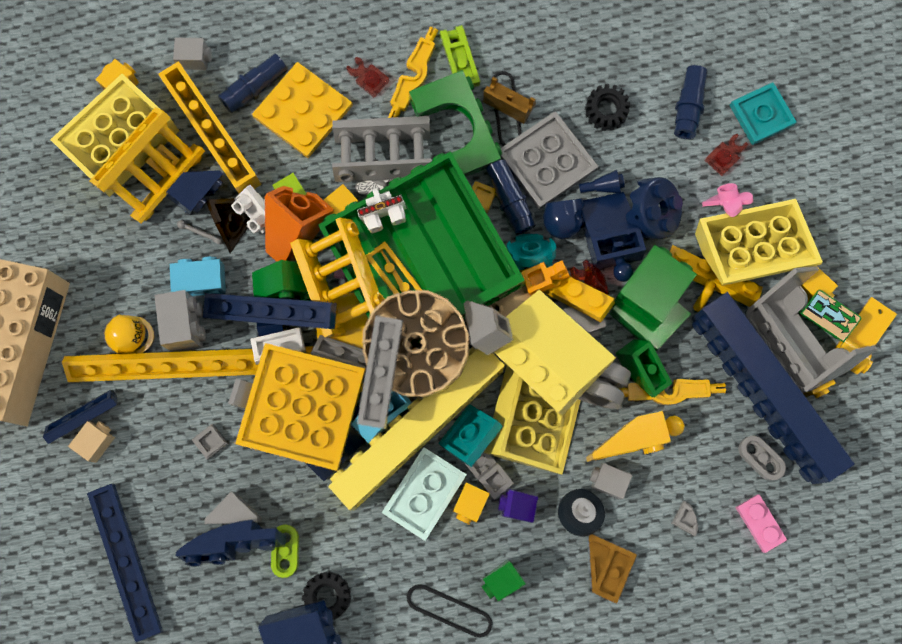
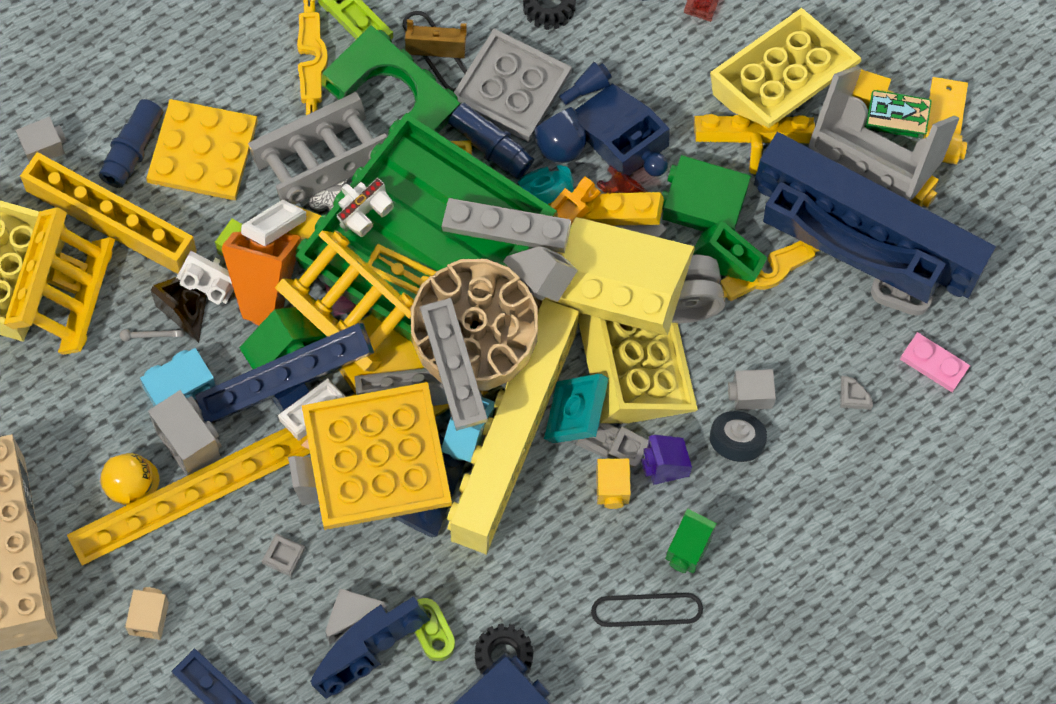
camera: 30 degrees left, 10 degrees down
(80, 416) = (118, 593): dark blue tile -> none
(192, 187) = (125, 285): dark blue slope -> none
(316, 191) = (273, 222): none -> white tile
(369, 78) = (264, 83): clear red plate -> none
(424, 493) = (556, 497): light aqua plate -> none
(481, 275) = (506, 225): none -> light grey plate
(609, 567) = (797, 481): pearl gold wing -> none
(641, 433) = (761, 323): yellow slope -> none
(654, 220) = (659, 79): dark blue plate -> none
(656, 285) = (699, 160): green brick -> none
(730, 199) = (731, 39): bright pink animal -> none
(767, 438) = (897, 266): none -> dark blue arch

